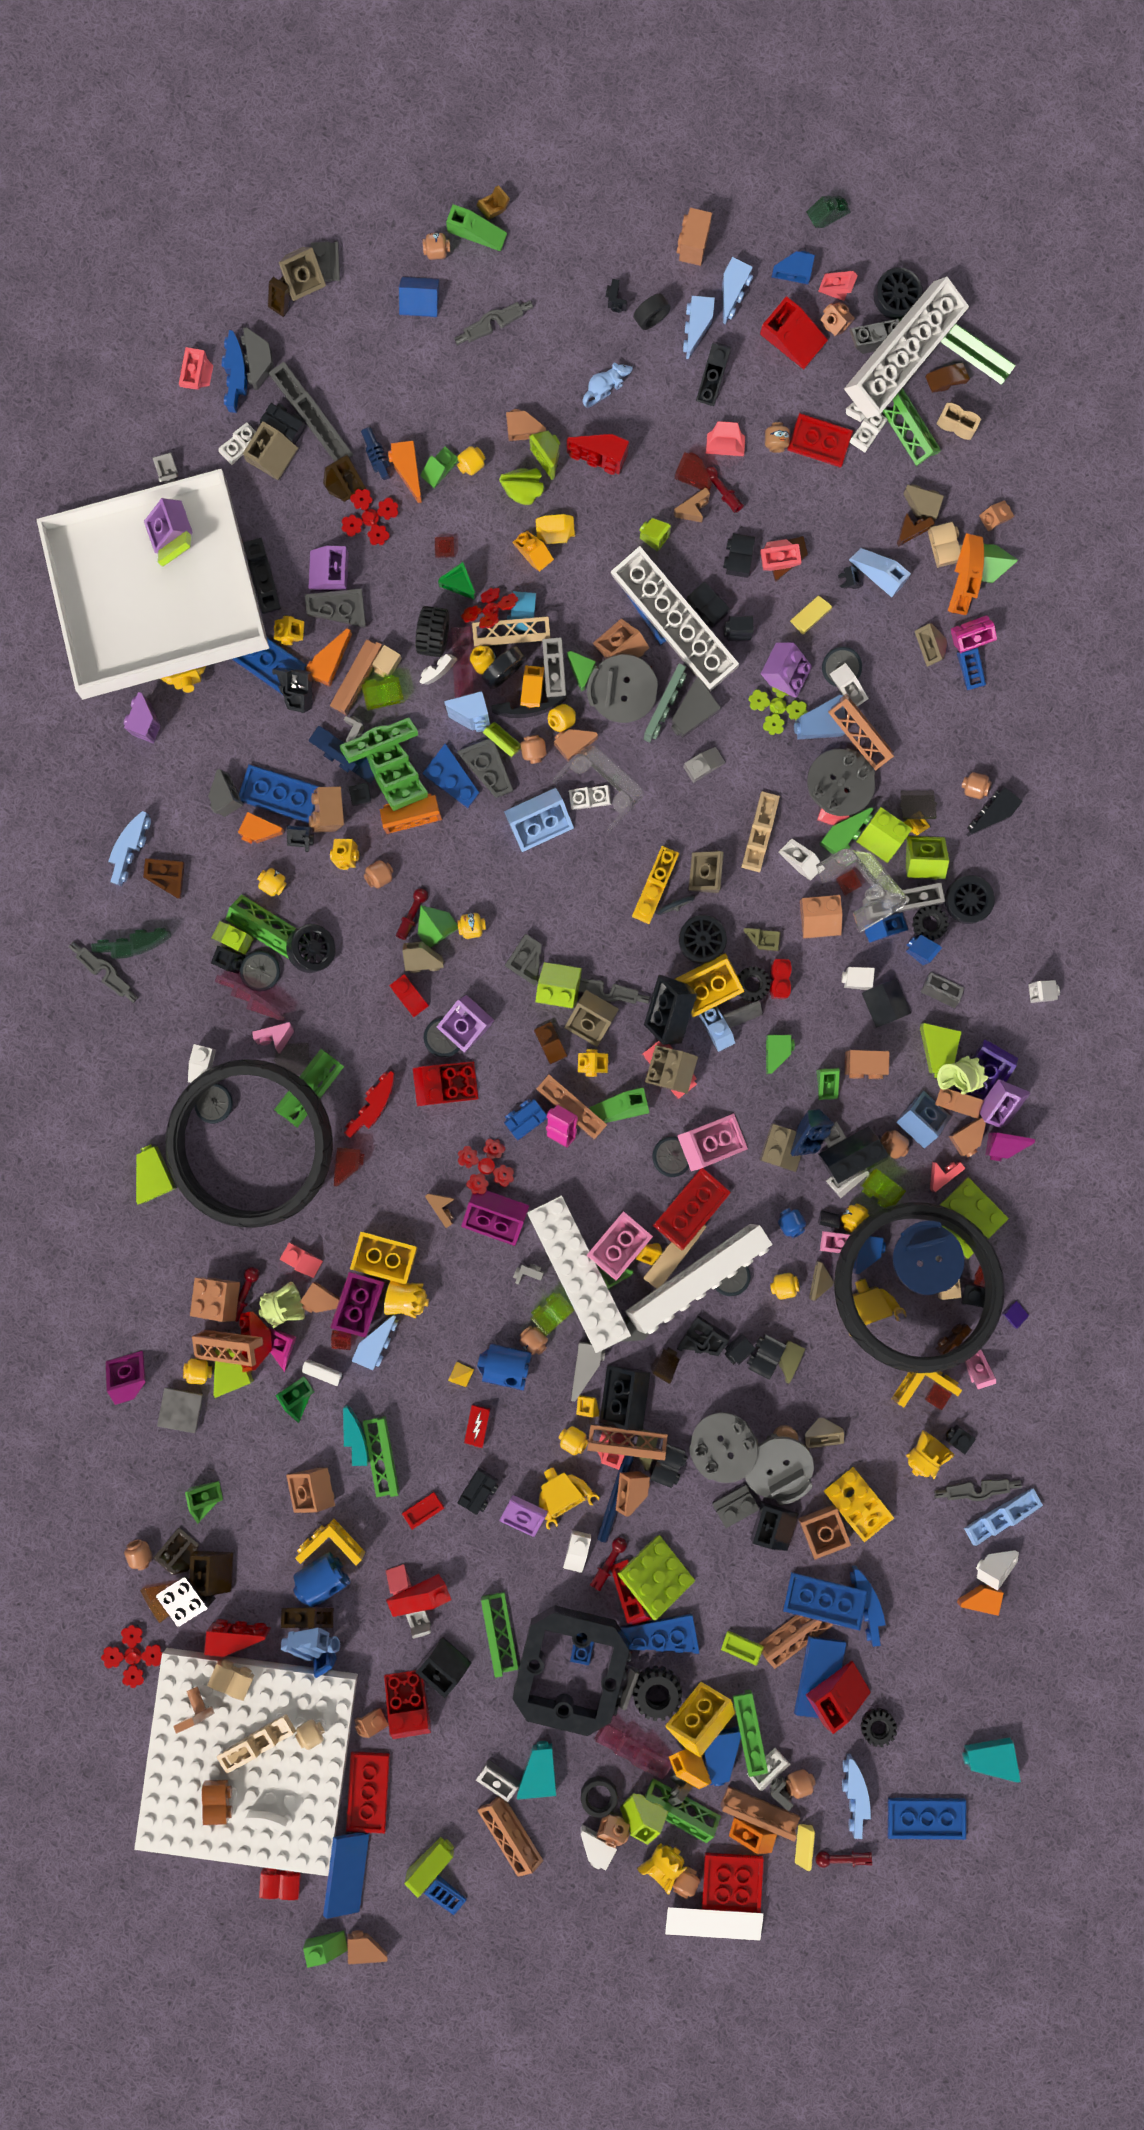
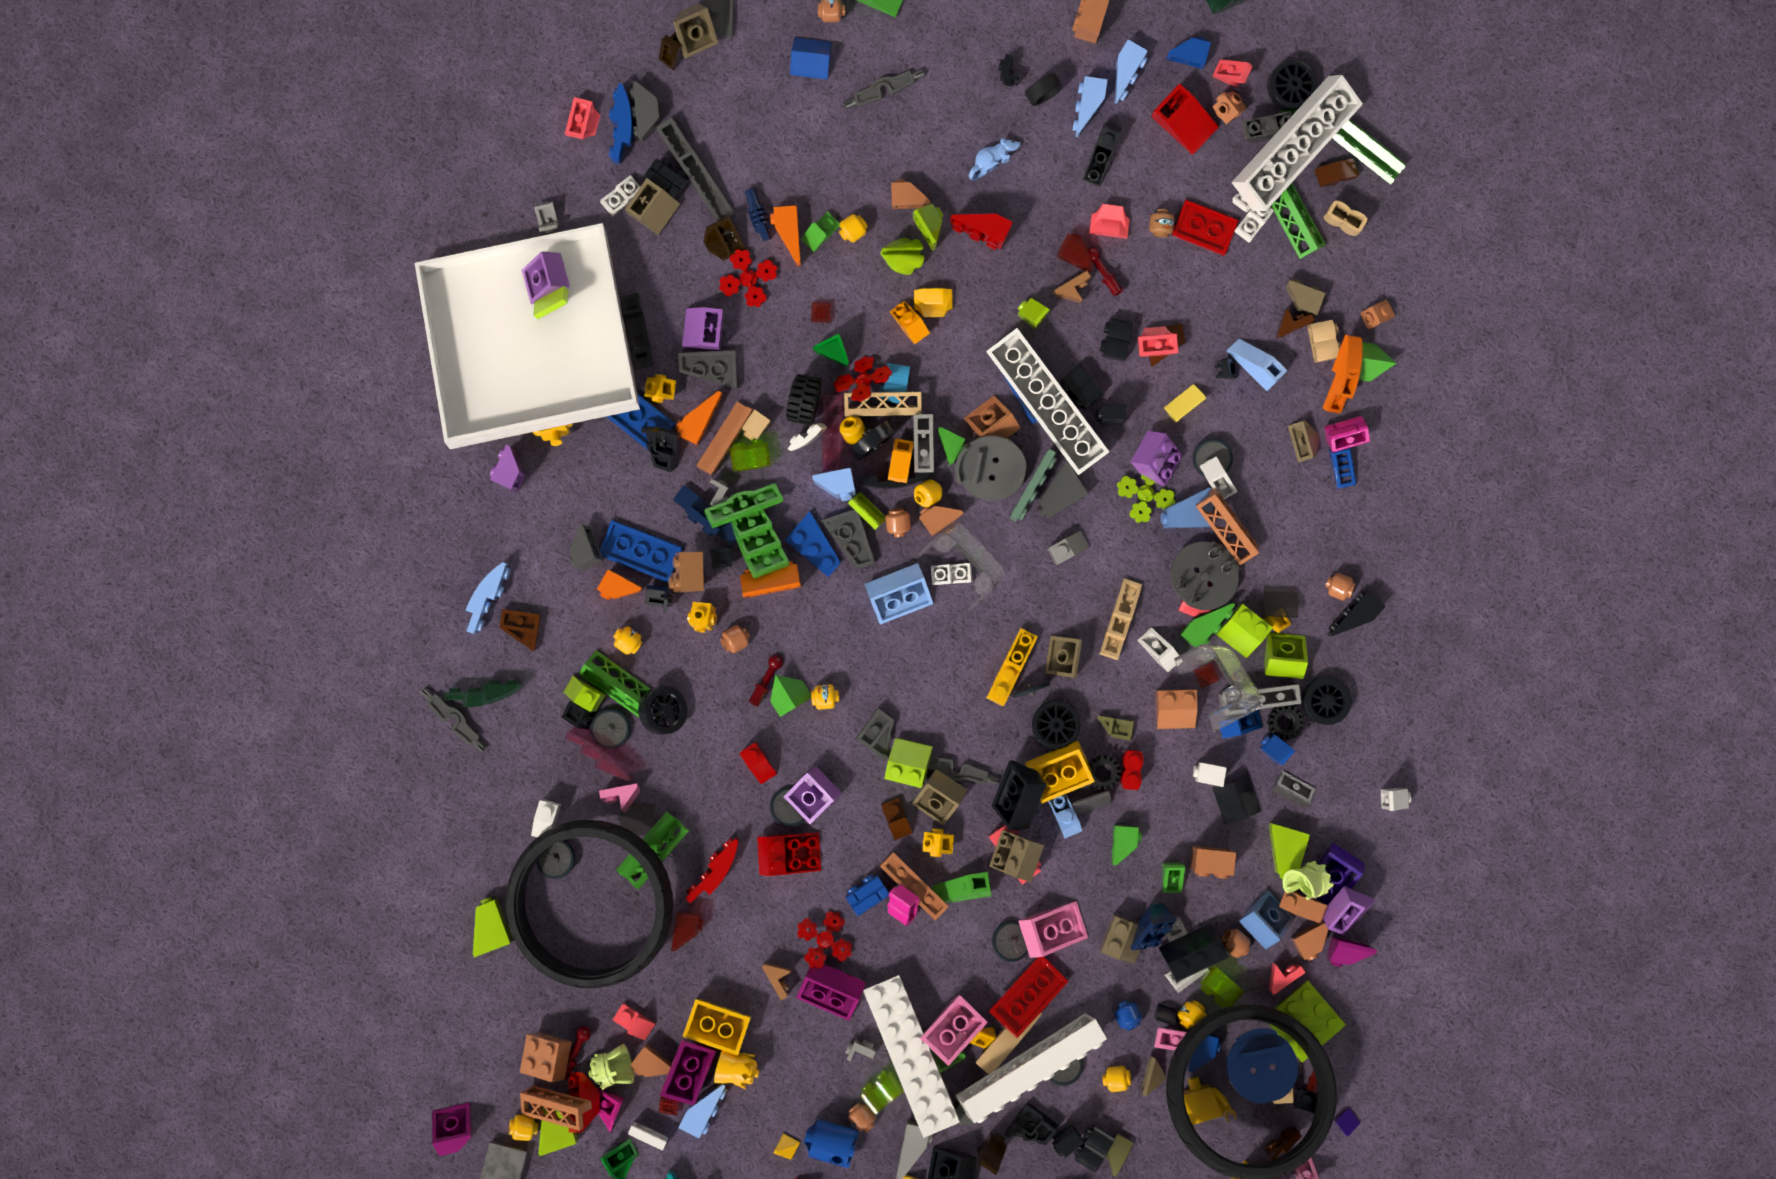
camera: 10 degrees right, 0 degrees up
(420, 957) = (772, 725): dark tan slope -> none

